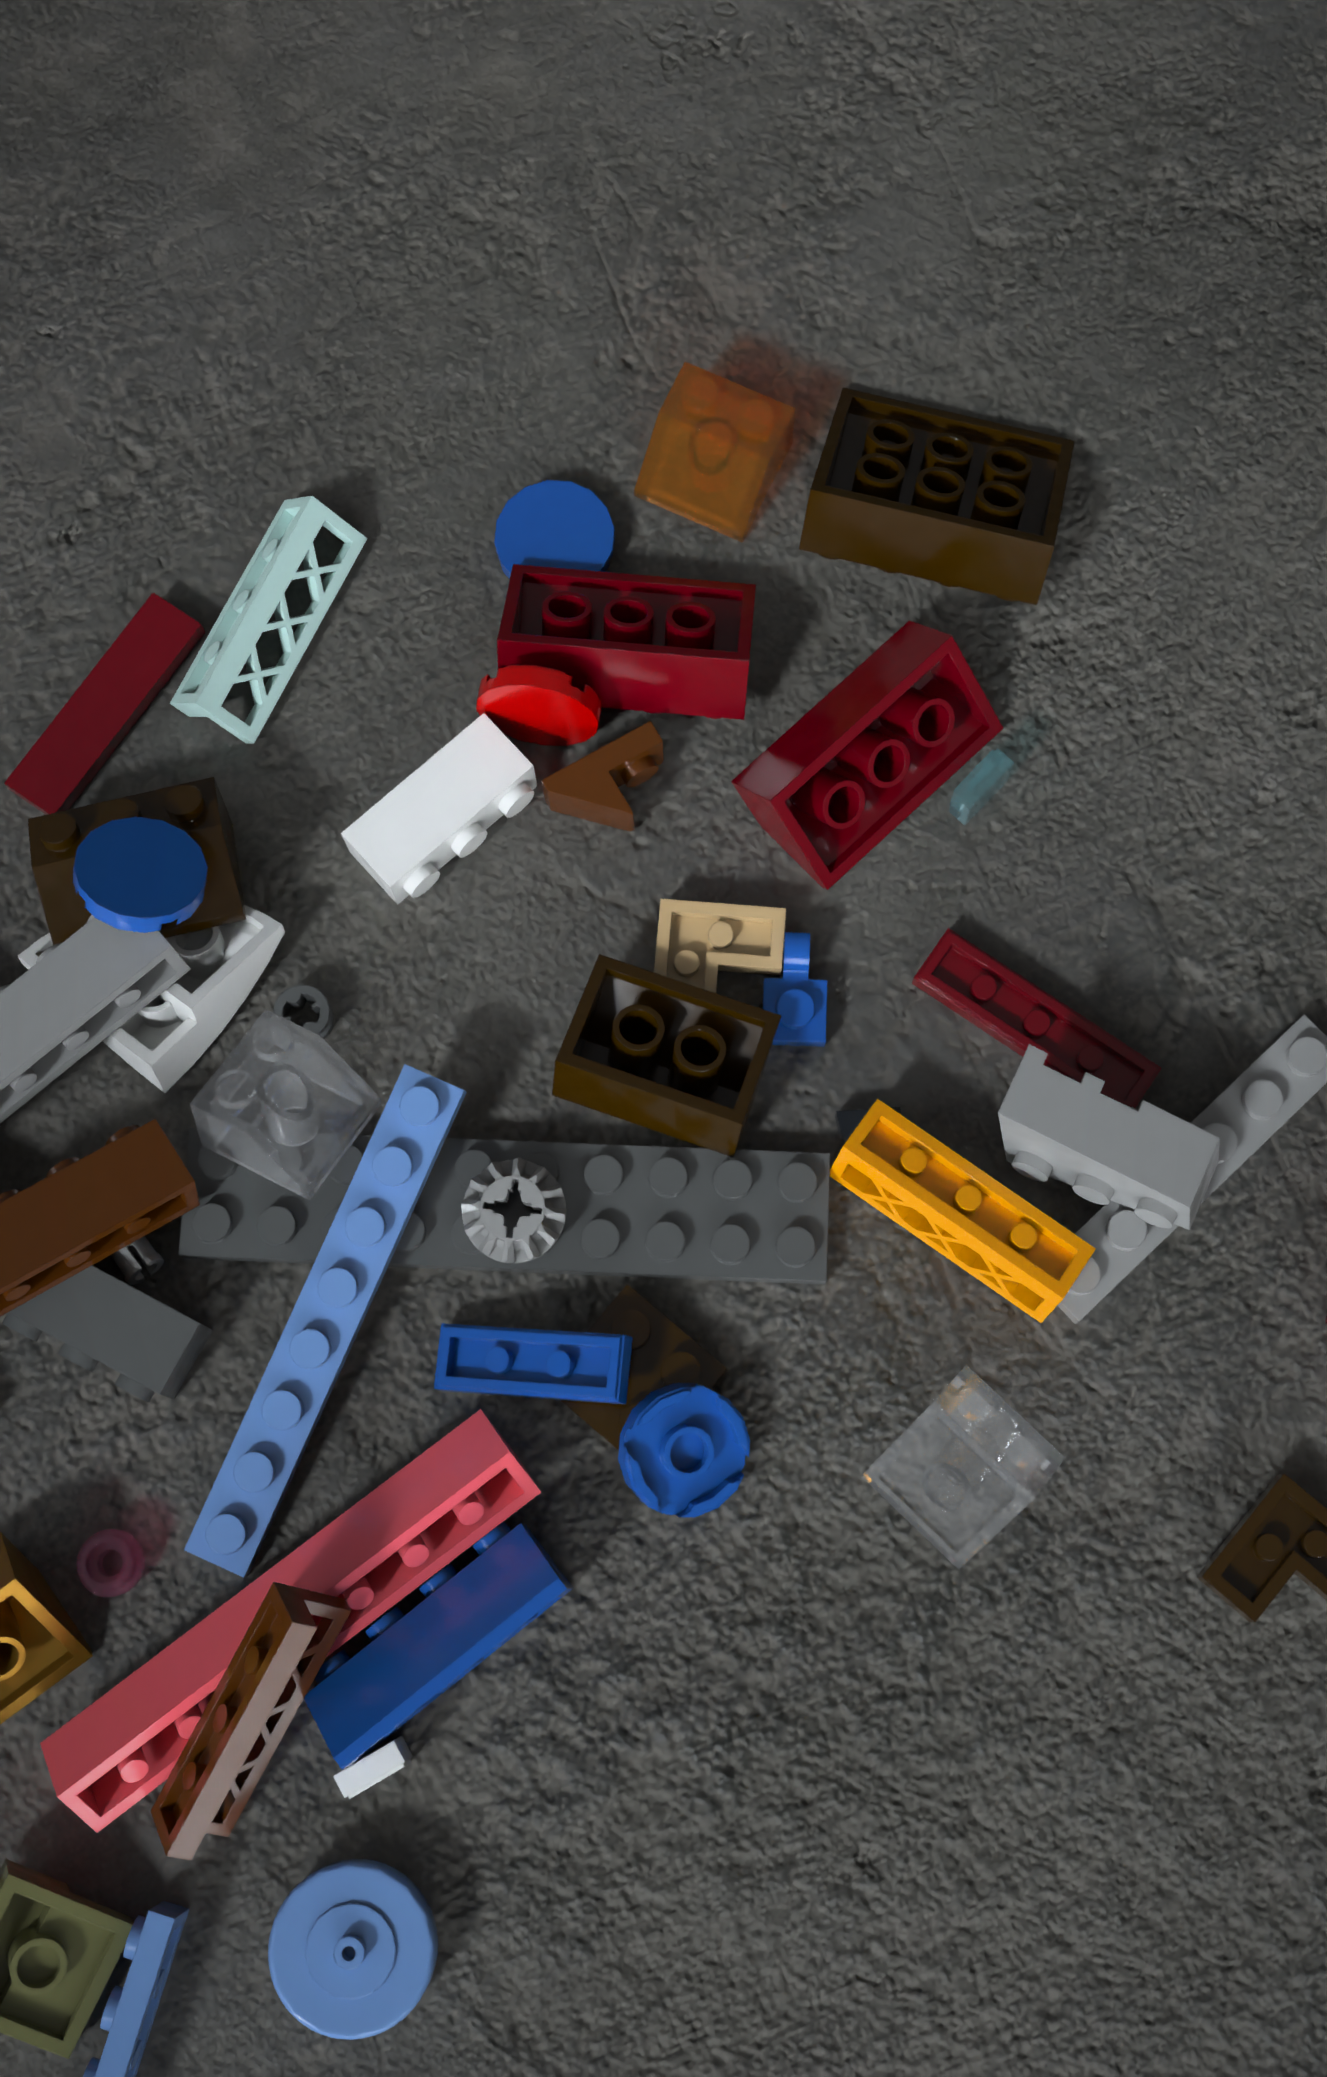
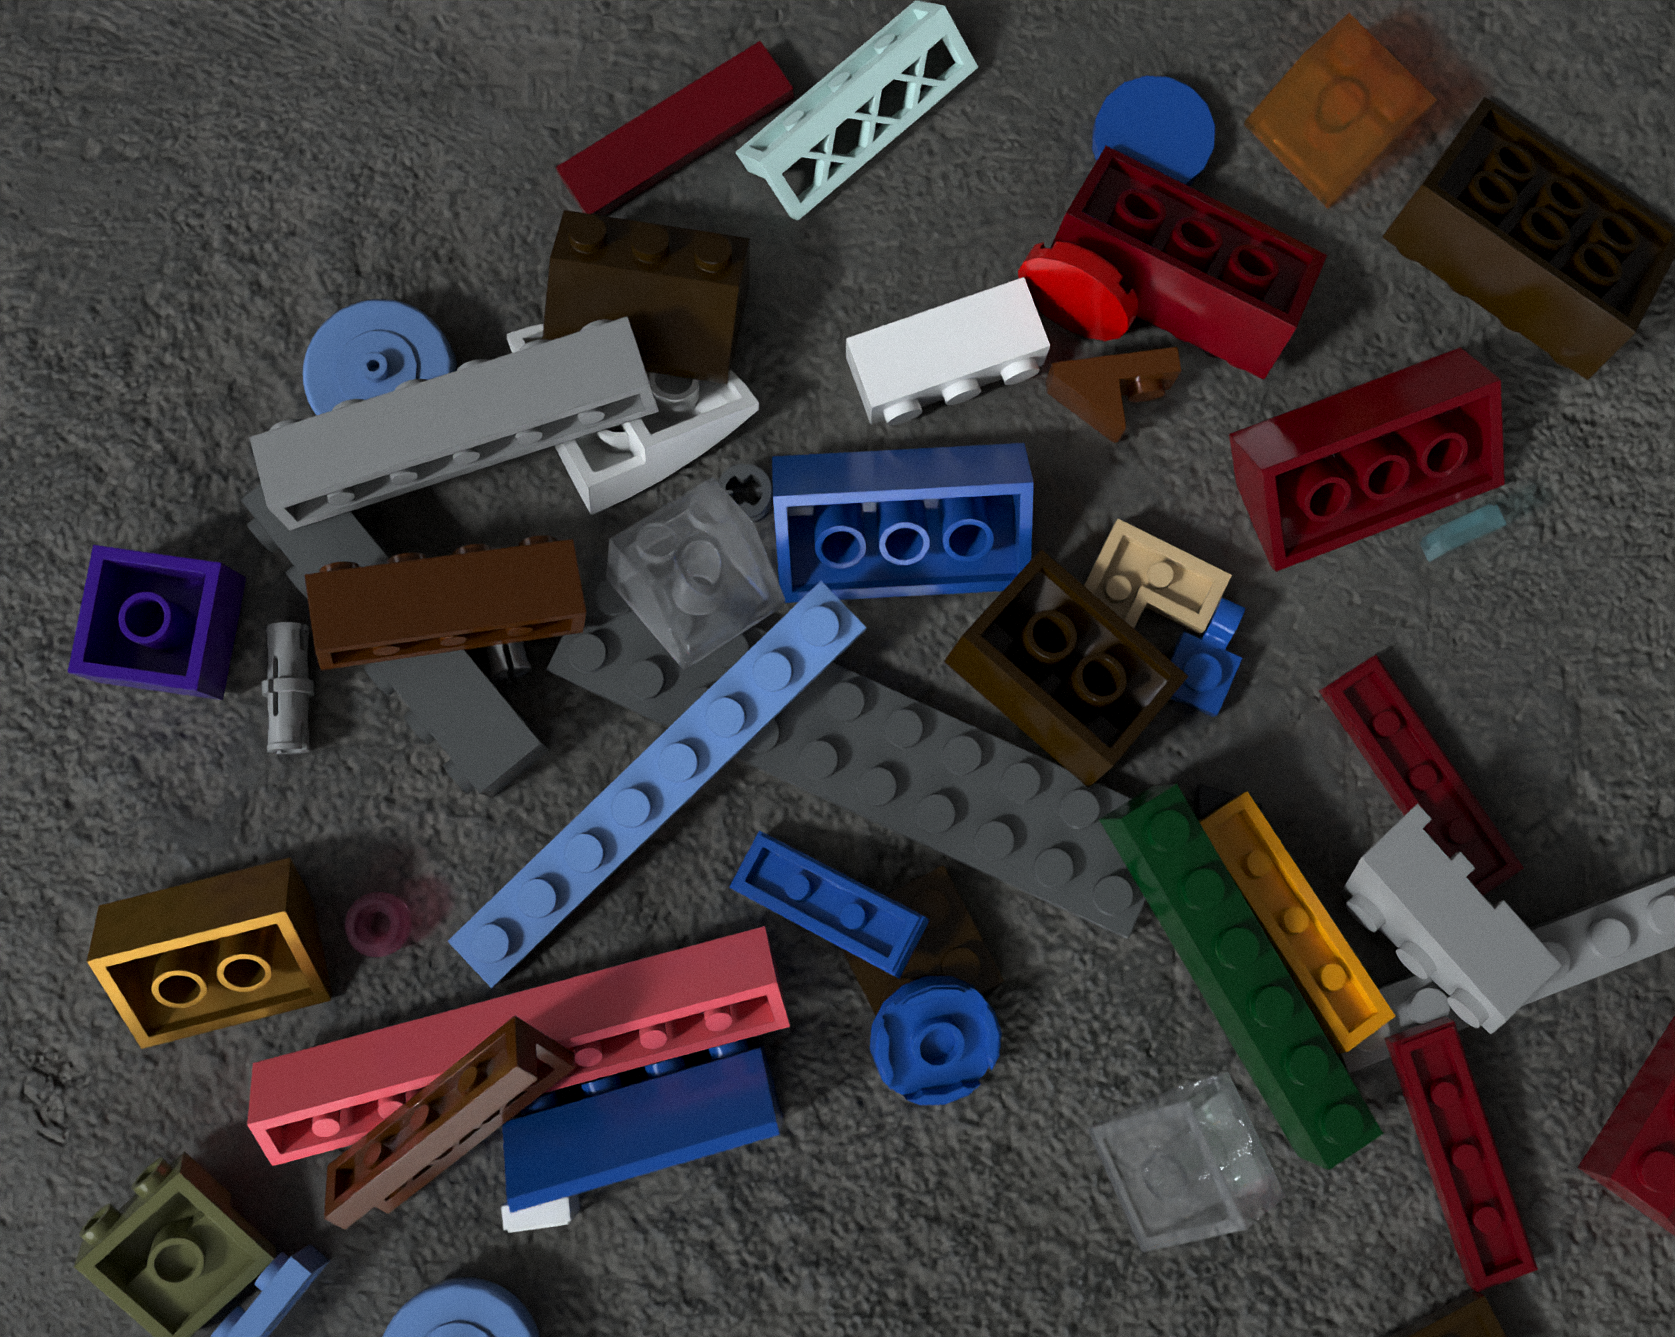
camera: 20 degrees right, 5 degrees up
(140, 874) = (646, 304): blue tile -> none
(460, 981) = (903, 521): none -> blue slope
(533, 1233) = (877, 785): light grey gear -> none
(940, 1270) = (1241, 976): none -> dark green brick
(1211, 1352) = (1461, 1153): none -> dark red tile

